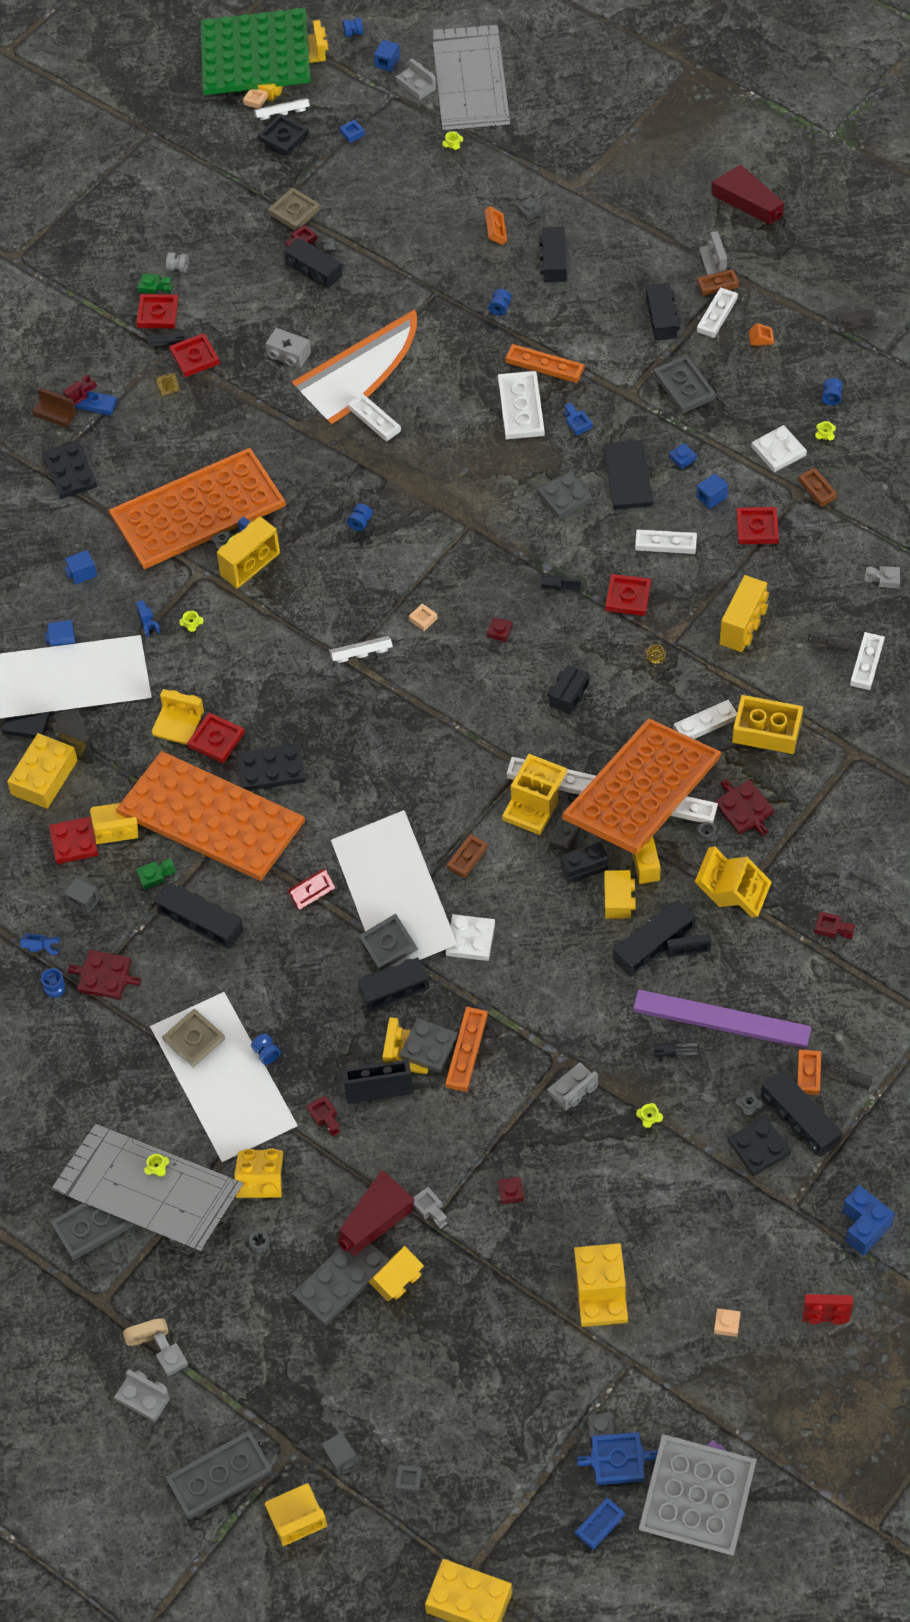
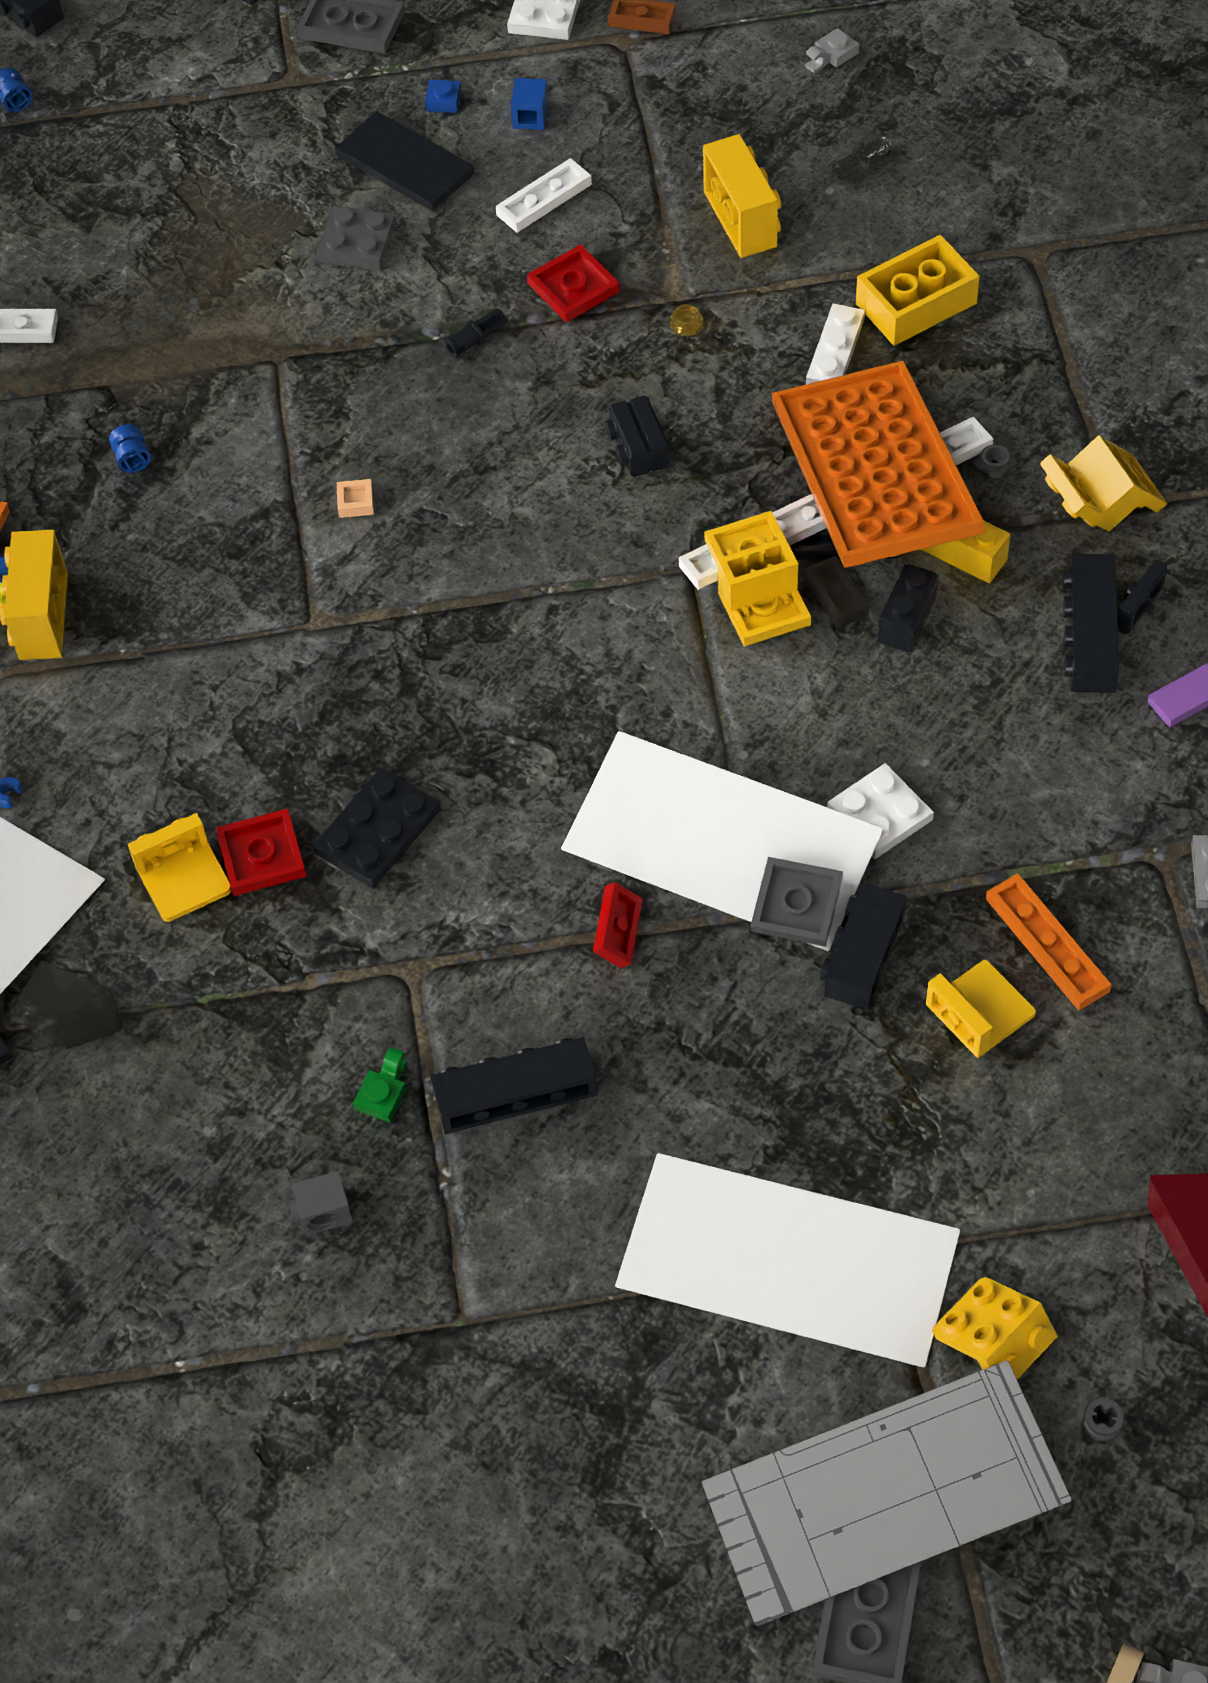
camera: 45 degrees left, 0 degrees up
(37, 942) = (334, 1317): blue plate -> none
(42, 770) = (69, 1093): yellow brick -> none
(53, 982) = (419, 1341): blue wheel -> none
(73, 840) = (217, 1145): red plate -> none
(104, 974) = (475, 1276): dark red plate -> none
(110, 826) = (252, 1071): yellow bracket -> none
(152, 1161) = (864, 1438): neon yellow plate -> none
(191, 616) = (47, 733): neon yellow plate -> none
(193, 1037) = (698, 1244): dark tan plate -> none
(211, 815) = (370, 952): orange plate -> none
(264, 1047) = (799, 1166): blue wheel -> none
(324, 1113) = (976, 1181): dark red plate -> none
(360, 649) = (322, 595): white plate -> none
(378, 1081) = (1001, 1075): black brick -> none
(428, 1045) = (1002, 977): dark grey plate -> none
(467, 856) = (759, 720): dark orange plate -> none
(499, 629) = (465, 440): dark red plate -> none
(521, 405) = (179, 179): white plate -> none
(544, 363) = (151, 116): orange plate -> none
(576, 420) = (270, 147): blue plate -> none
(618, 897) = (990, 610): yellow brick -> none
(744, 807) = (1000, 400): dark red plate -> none
(757, 525) = (626, 102): red plate -> none
(867, 661) = (929, 146): white plate -> none

